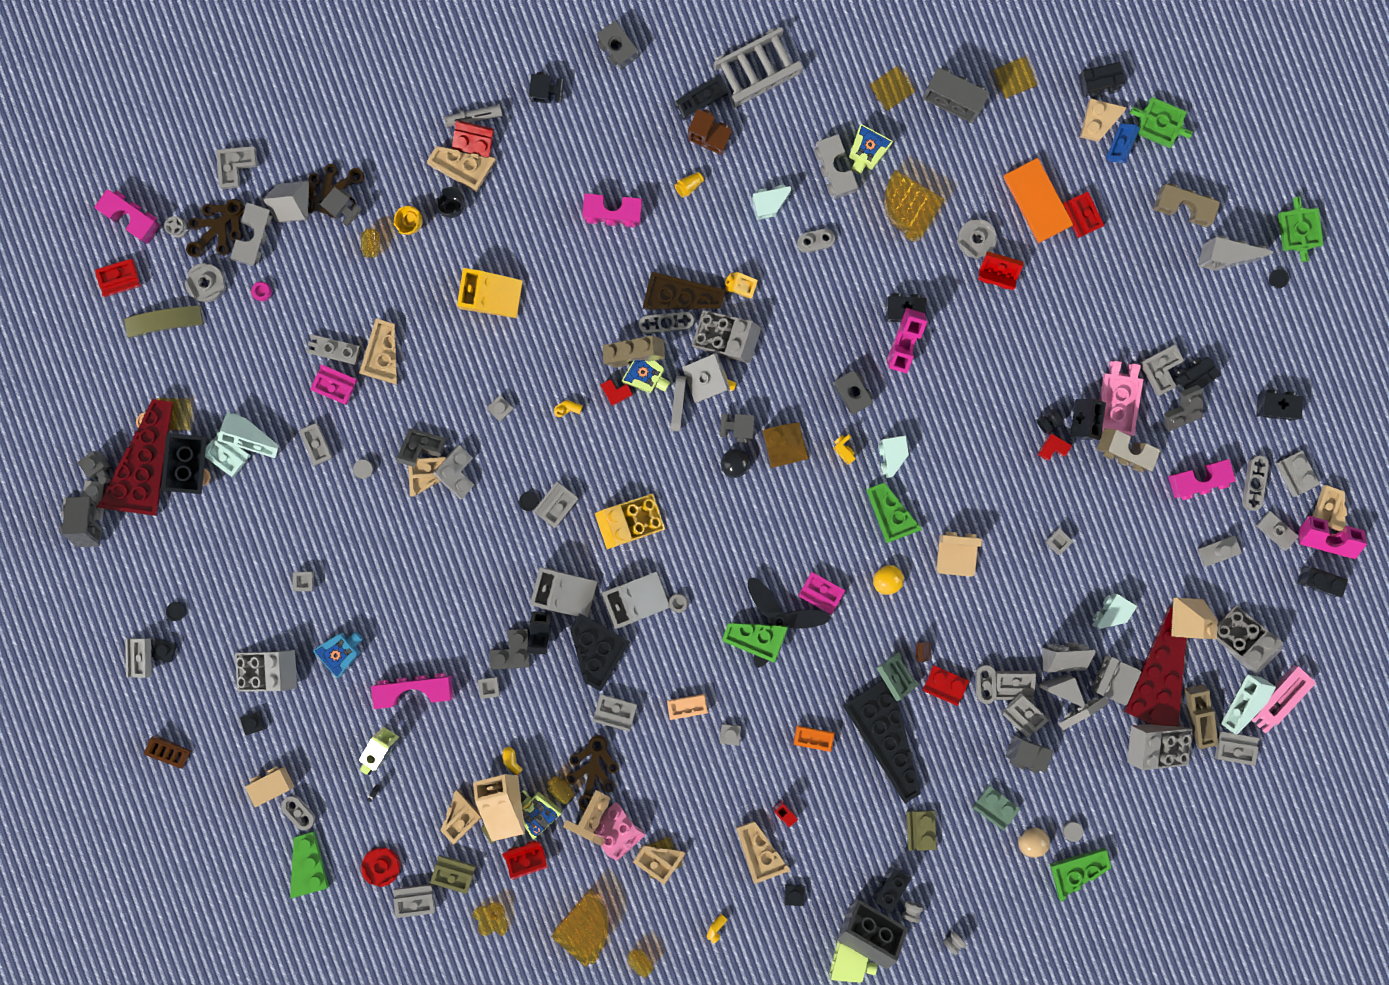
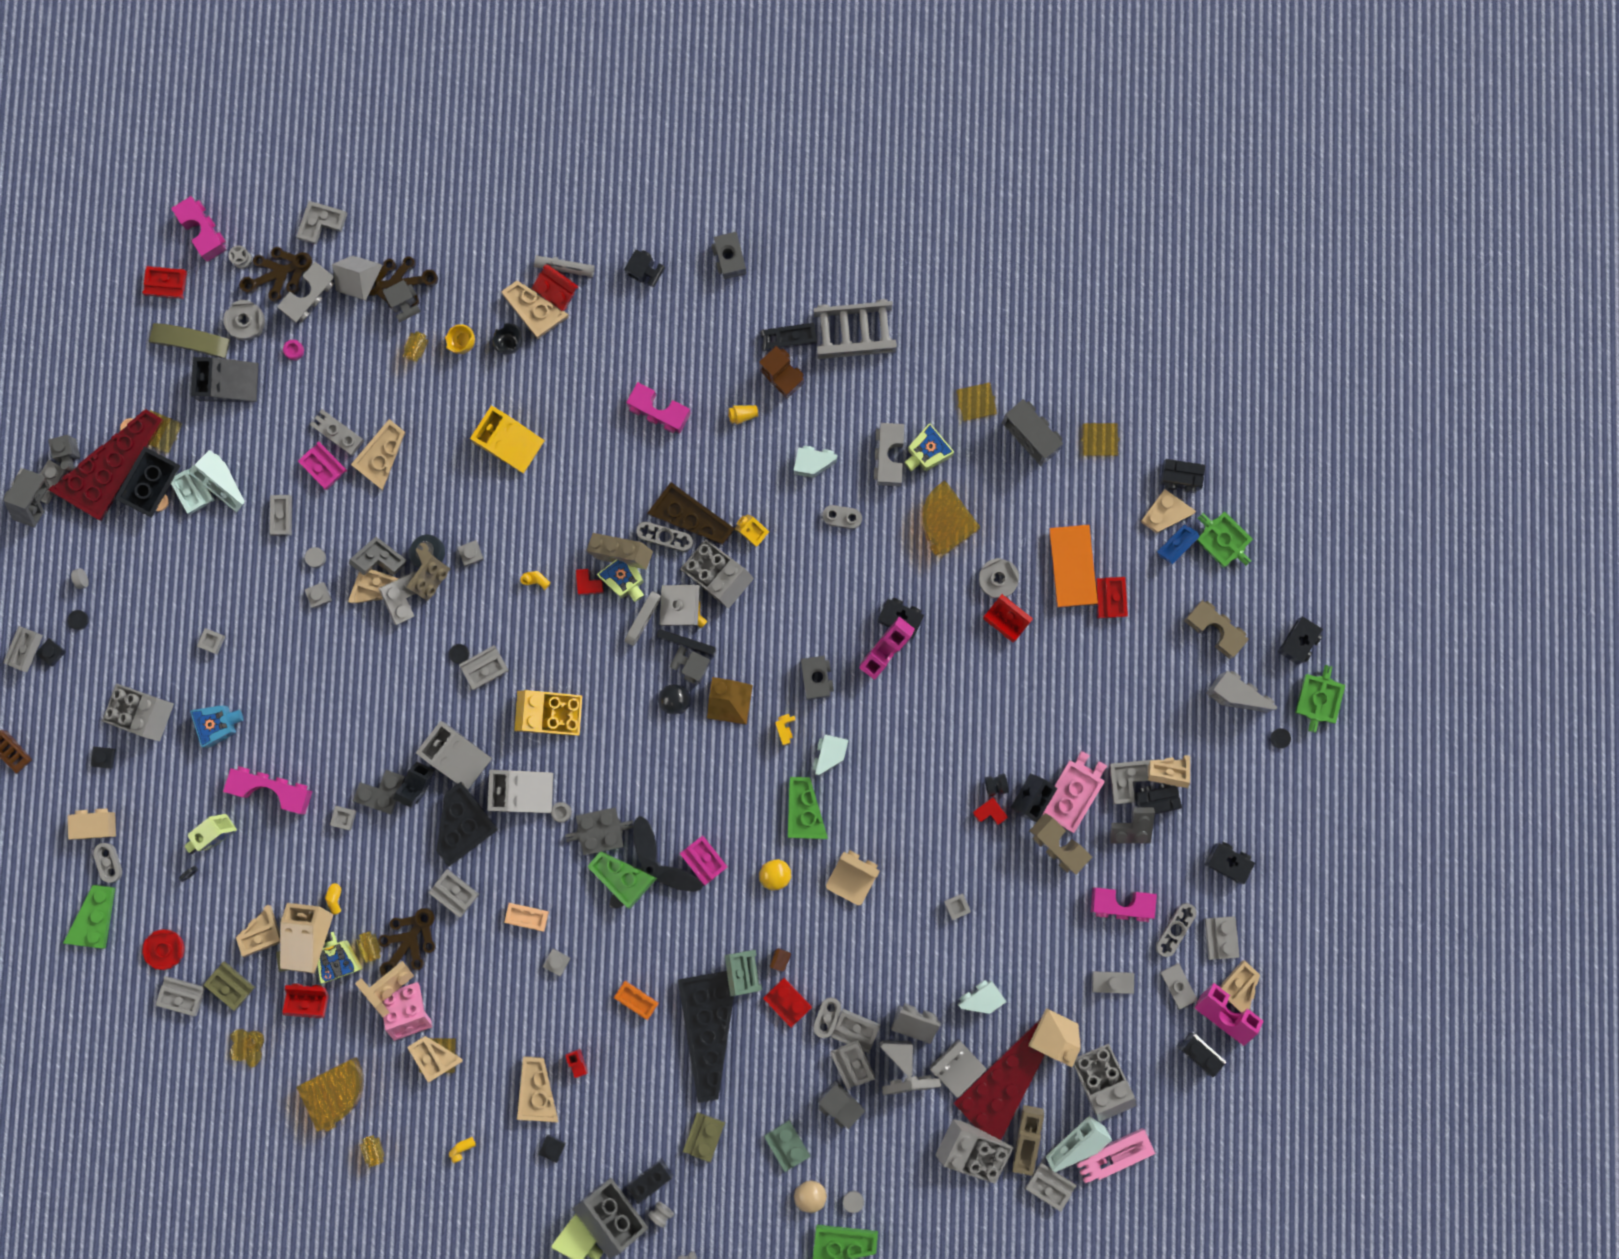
camera: 30 degrees right, 5 degrees down
(161, 574) = (79, 578): none -> light grey tile
(211, 344) = (224, 380): none -> black slope
(380, 501) = (318, 595): none -> light grey plate
(463, 425) = (427, 555): none -> dark tan plate
(719, 605) = (599, 831): none -> dark grey plate
(726, 408) = (686, 642): none -> black tile
(1198, 347) = (1170, 771): none -> tan wing
(1257, 192) = (1302, 629): none -> black brick

